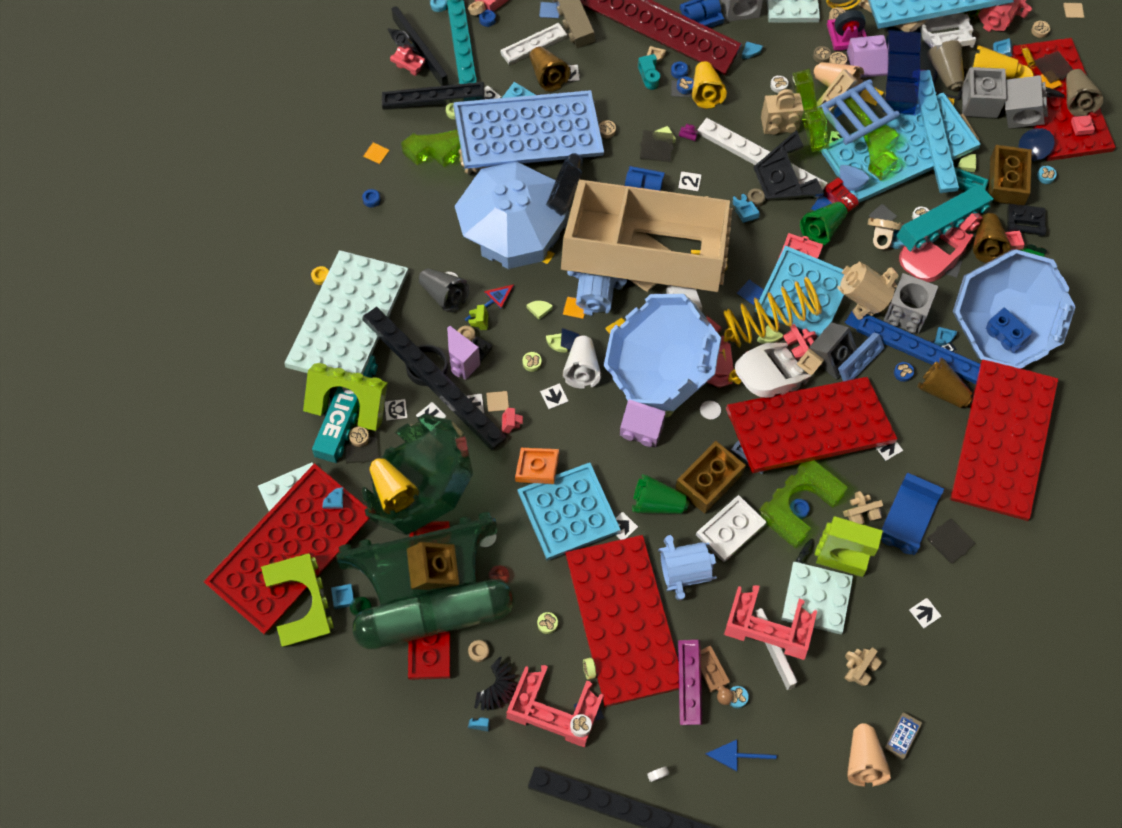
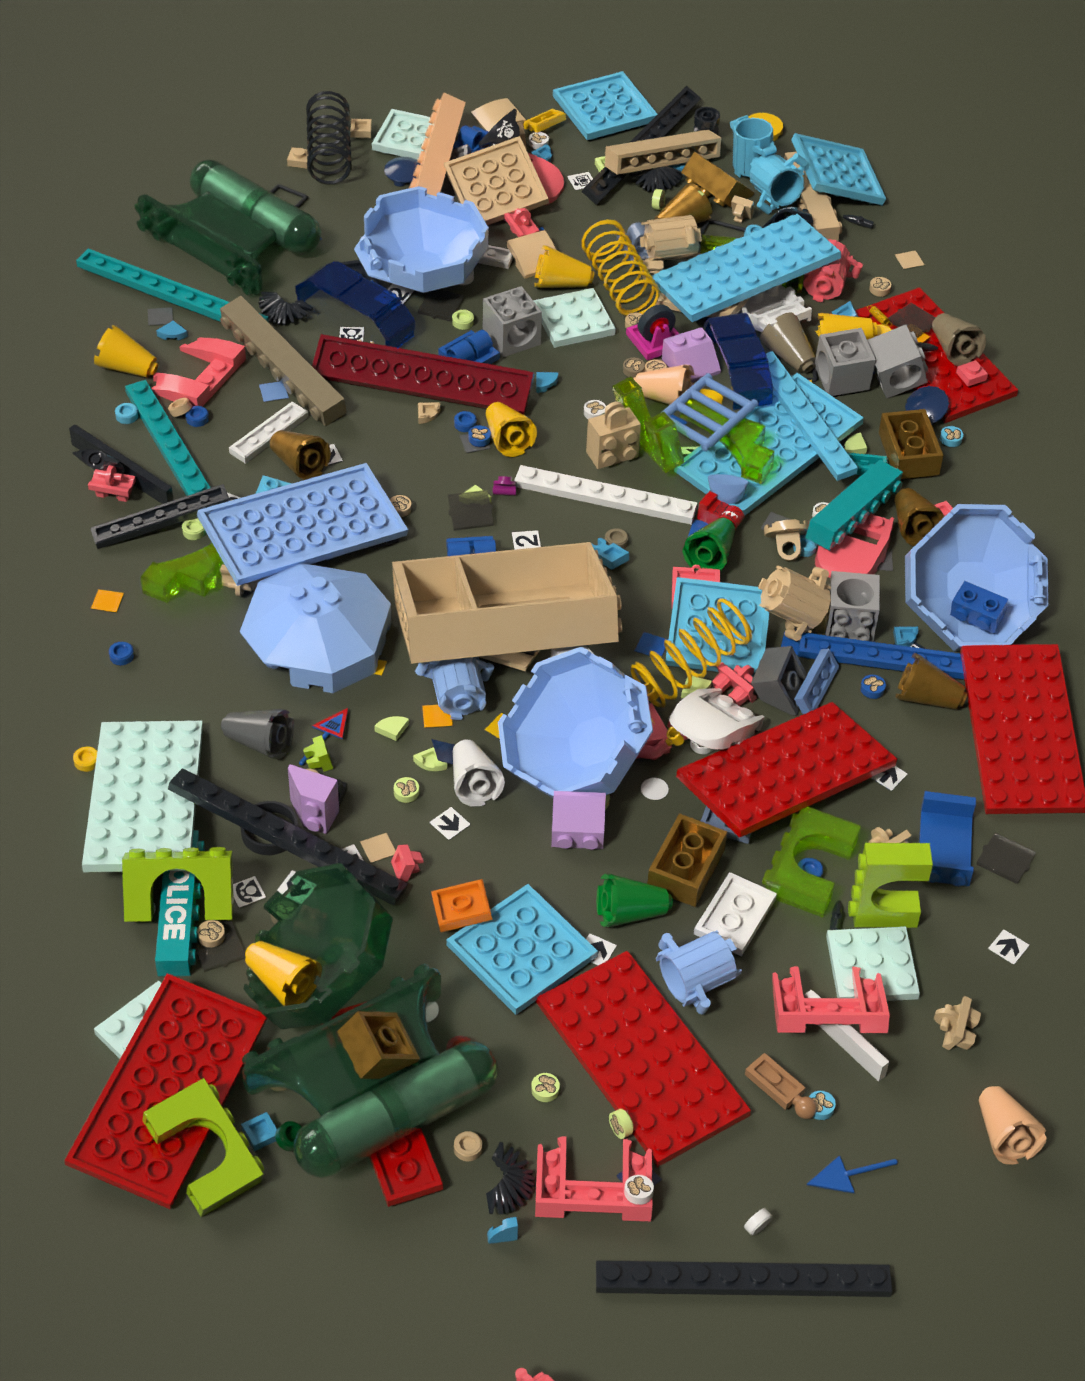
camera: 20 degrees left, 15 degrees down
(334, 500) = (210, 1010): dark azure tile -> none
(566, 184) = (376, 572): black piece -> none
(648, 71) = (428, 431): teal leg -> none
(690, 682) = (756, 1102): magenta plate -> none
(778, 176) = (636, 508): black wing -> none
(810, 361) = (758, 699): tan plate -> none
(841, 84) = (674, 387): tan plate -> none
(902, 736) = (1040, 1090): tile -> none
(971, 222) = (887, 503): coral plate -> none
(1028, 216) = (948, 487): black plate -> none

